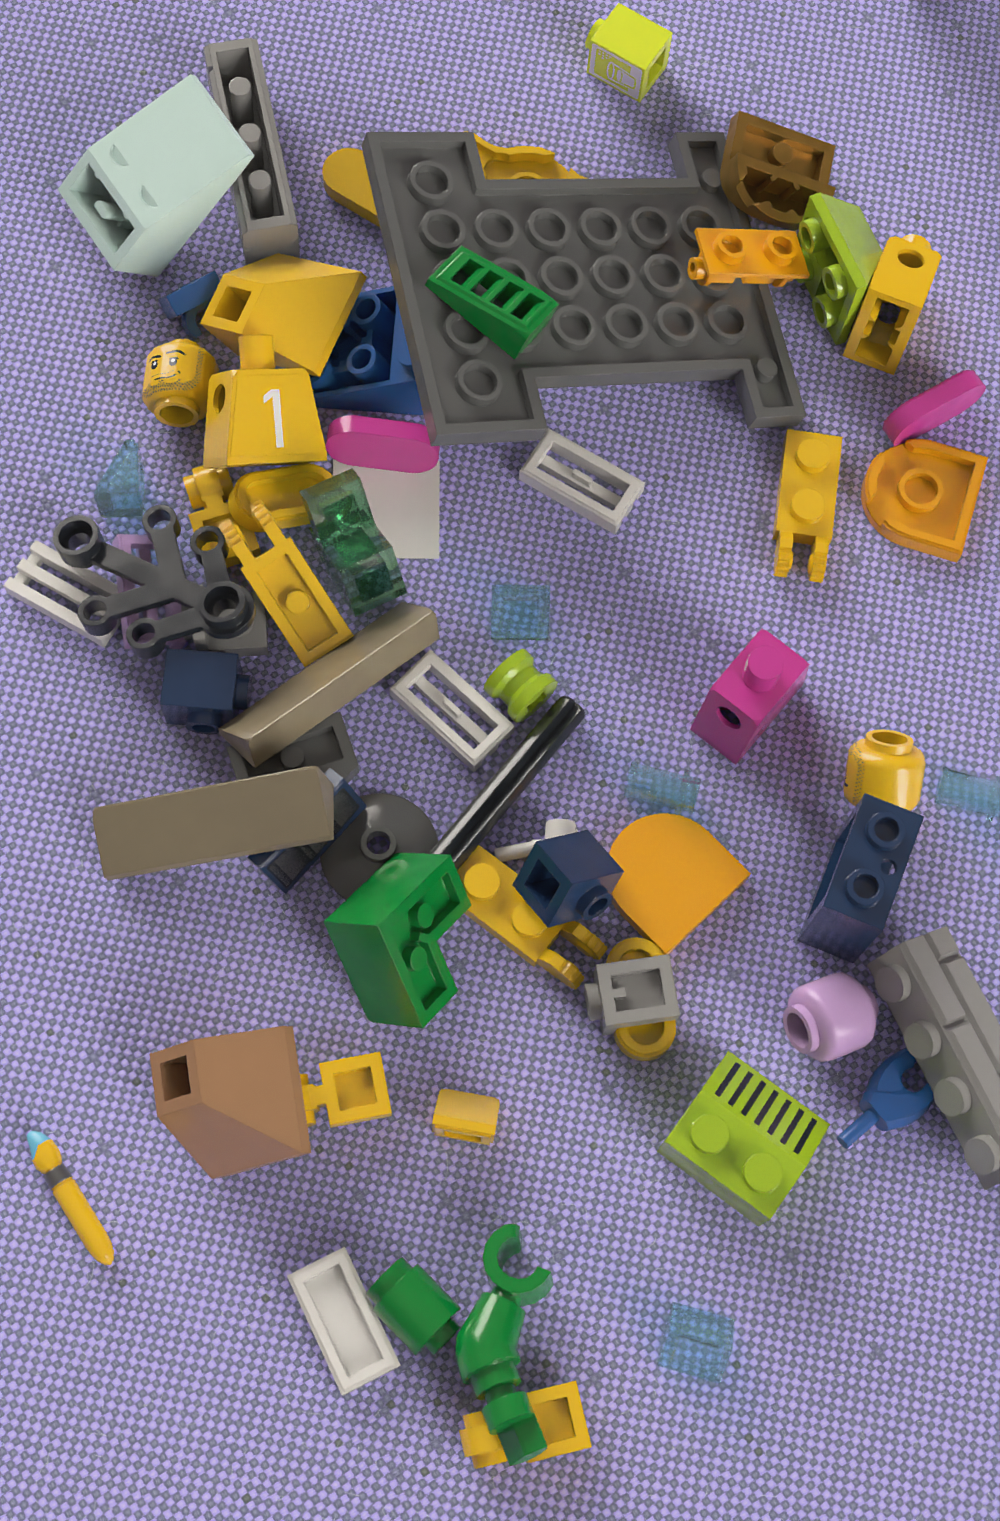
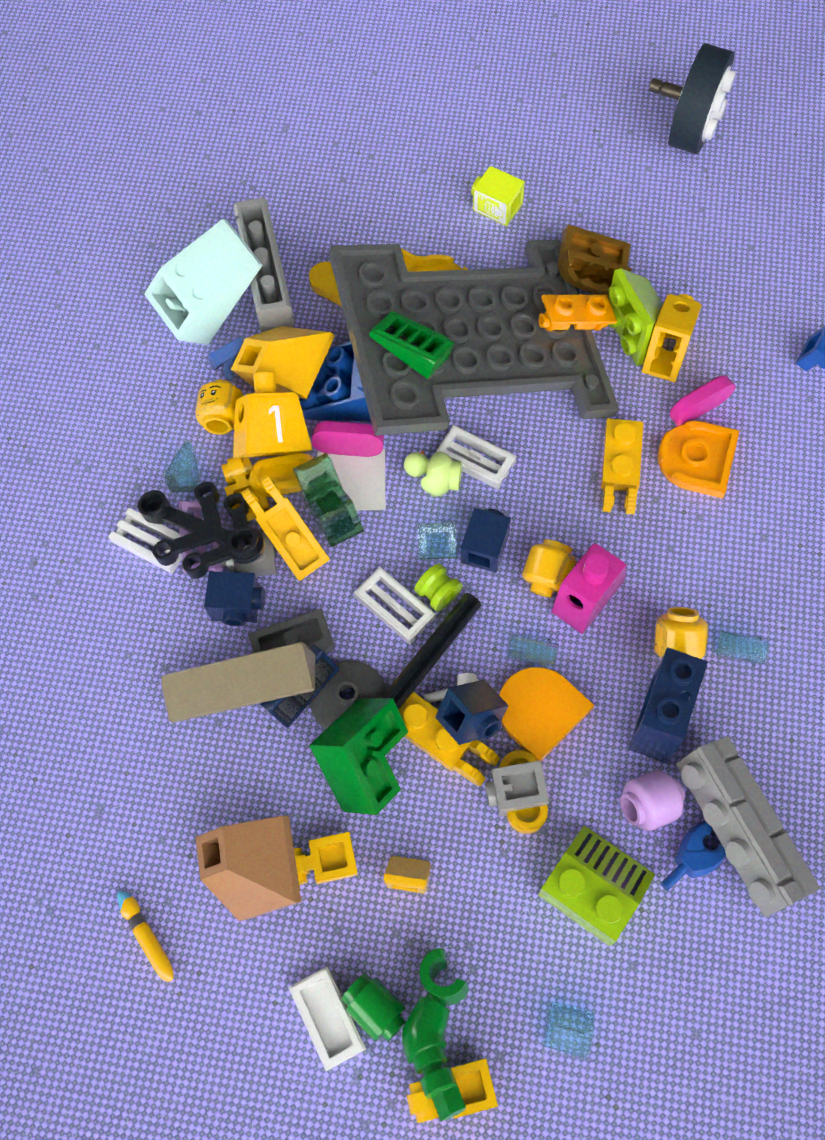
camera: 10 degrees right, 5 degrees down
(331, 682) = (315, 590): dark tan slope -> none
(528, 501) = (440, 471): none -> yellowish green animal
(595, 613) = (485, 539): none -> dark blue brick
(689, 660) = (548, 567): none -> yellow head

